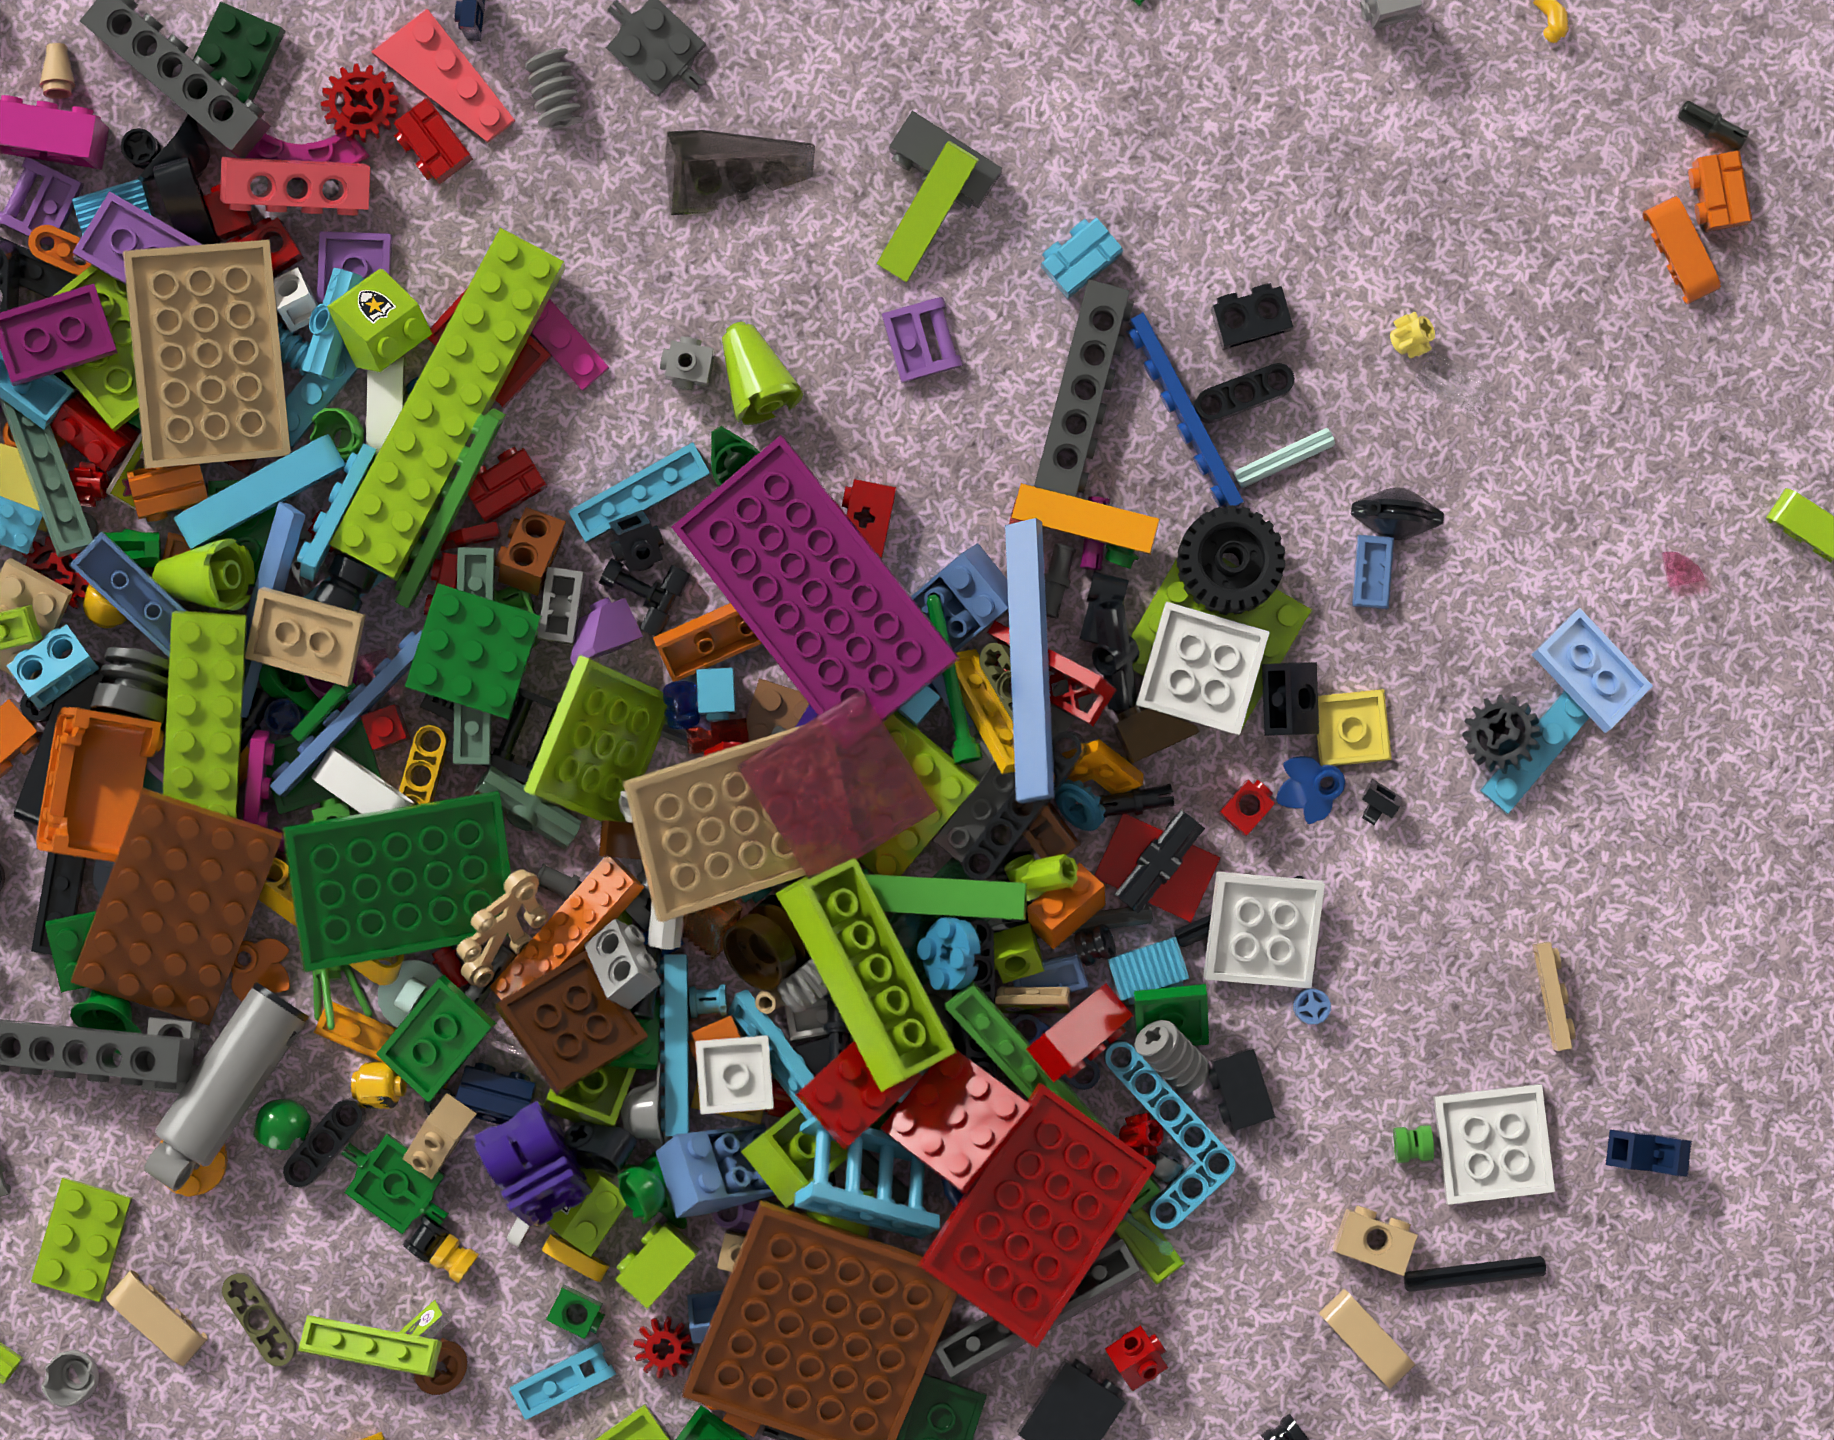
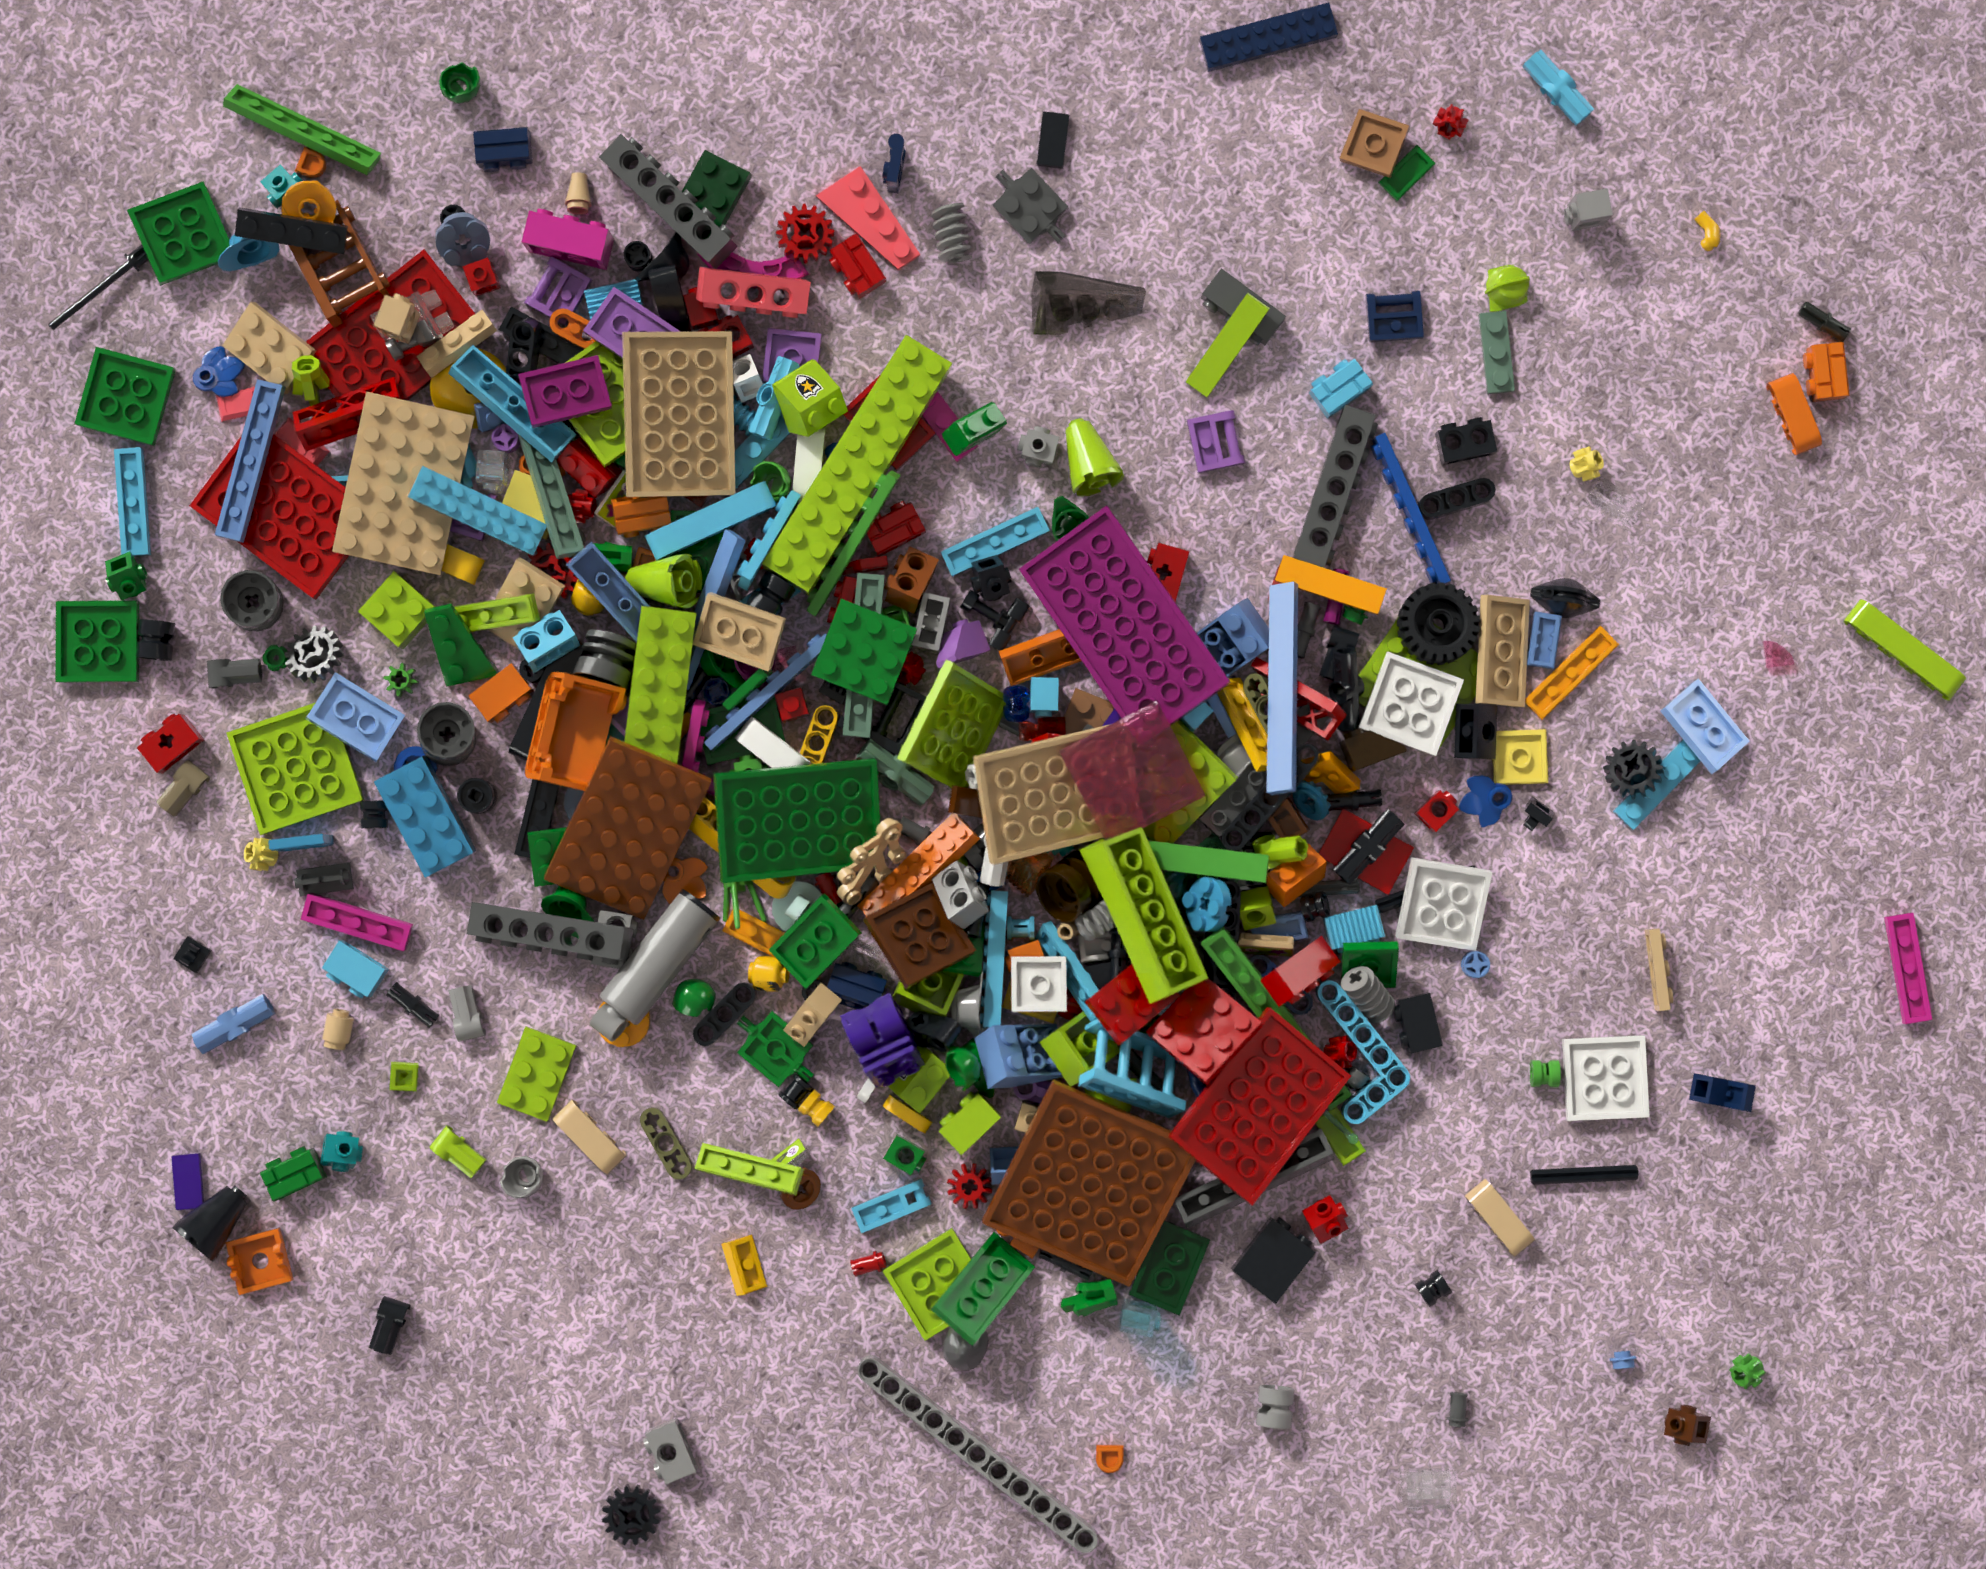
camera: 10 degrees right, 0 degrees up
(540, 669) = (912, 669): none -> red gear
(600, 345) = (974, 428): none -> green brick
(966, 748) = (1229, 750): green piece -> none
(1146, 169) = (1394, 325): none -> dark blue plate
(1284, 196) = (1496, 352): none -> sand green plate
(1284, 458) = (1483, 550): light aqua axle -> none
(1292, 109) = (1506, 287): none -> lime piece
(1318, 590) = (1502, 651): none -> tan plate
(1391, 1255) = (1523, 1155): tan brick -> none
(1411, 611) = (1571, 672): none -> light orange tile

